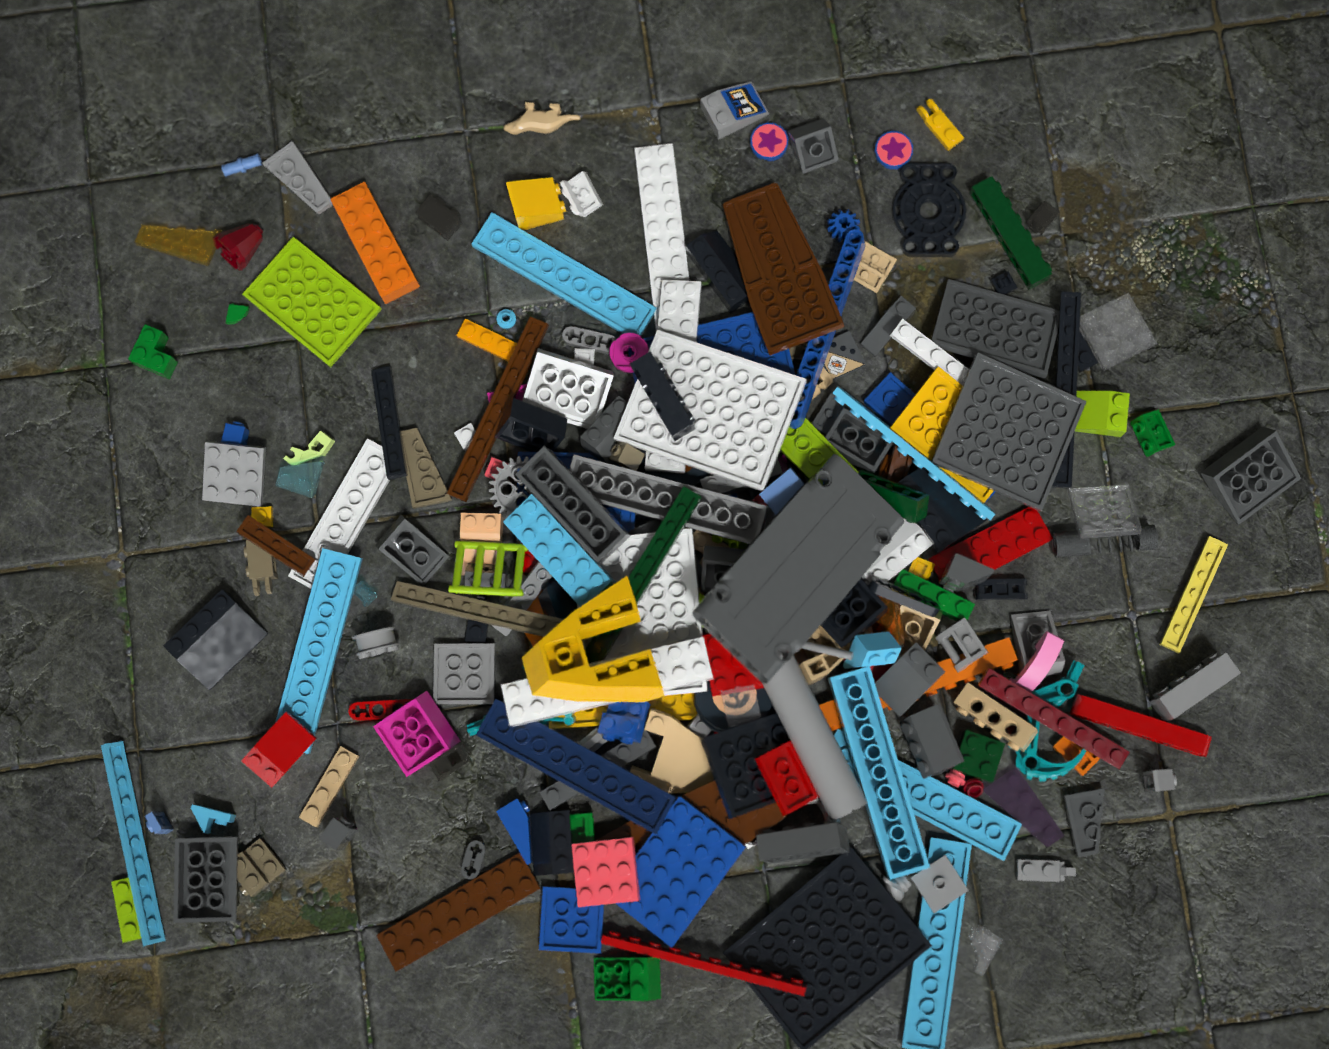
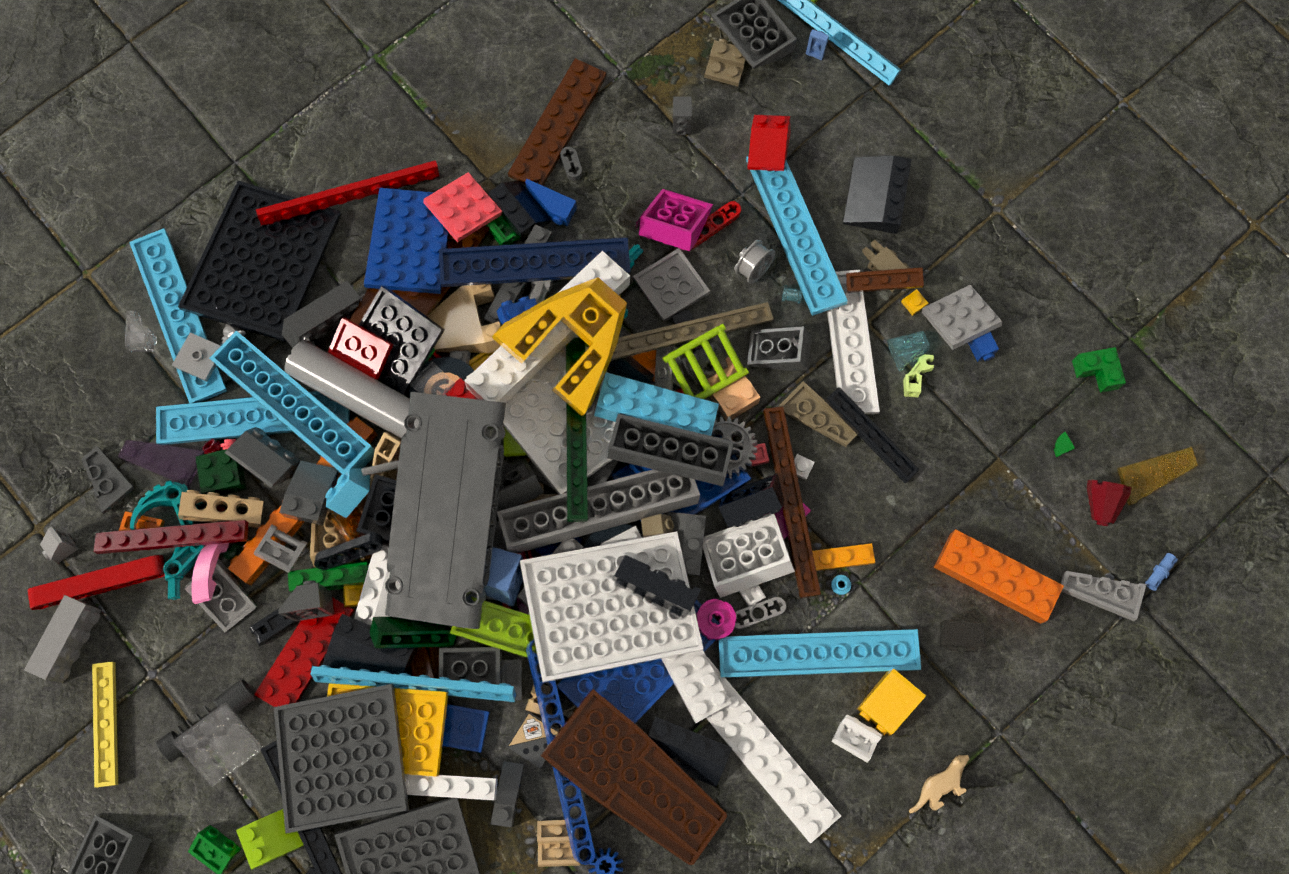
camera: 140 degrees right, 5 degrees down
(206, 816) = (787, 74): medium azure slope -> none
(312, 302) = (1010, 494): lime plate -> none
(329, 786) = (715, 147): tan plate -> none
(568, 926) = (470, 156): blue plate -> none
(627, 978) = (400, 151): green slope -> none
(1043, 870) = (121, 421): light grey hinge -> none

